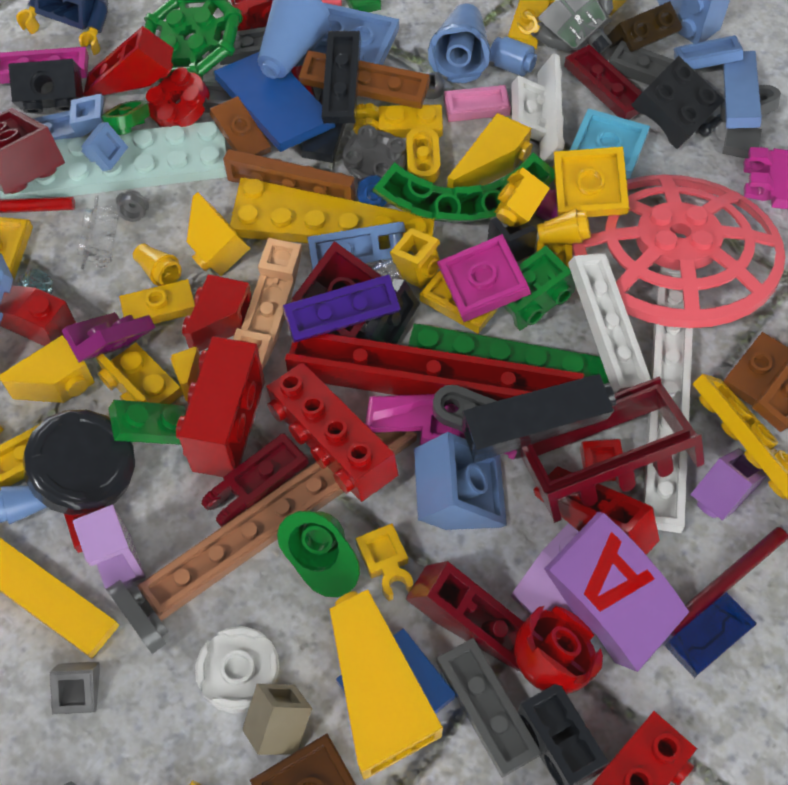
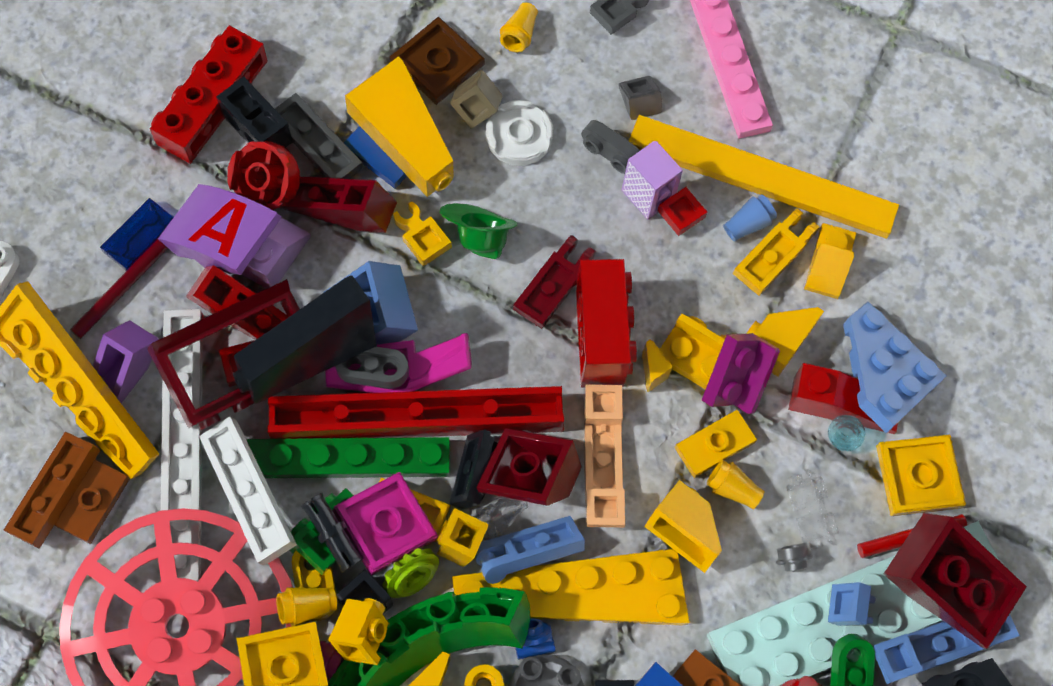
camera: 160 degrees right, 10 degrees up
(77, 463) = (712, 251): black piece -> none
(145, 421) = (667, 302): green plate -> none
(217, 311) = (648, 440): red slope -> none
(246, 535) = (525, 260): nougat tile -> none
(288, 174) = (649, 632): dark orange plate -> none
(332, 432) = (498, 326): red brick -> none
(341, 308) = (519, 438): dark purple plate -> none
(465, 239) = (411, 573): none -> lime gear
(534, 265) = (332, 532): none -> black pin

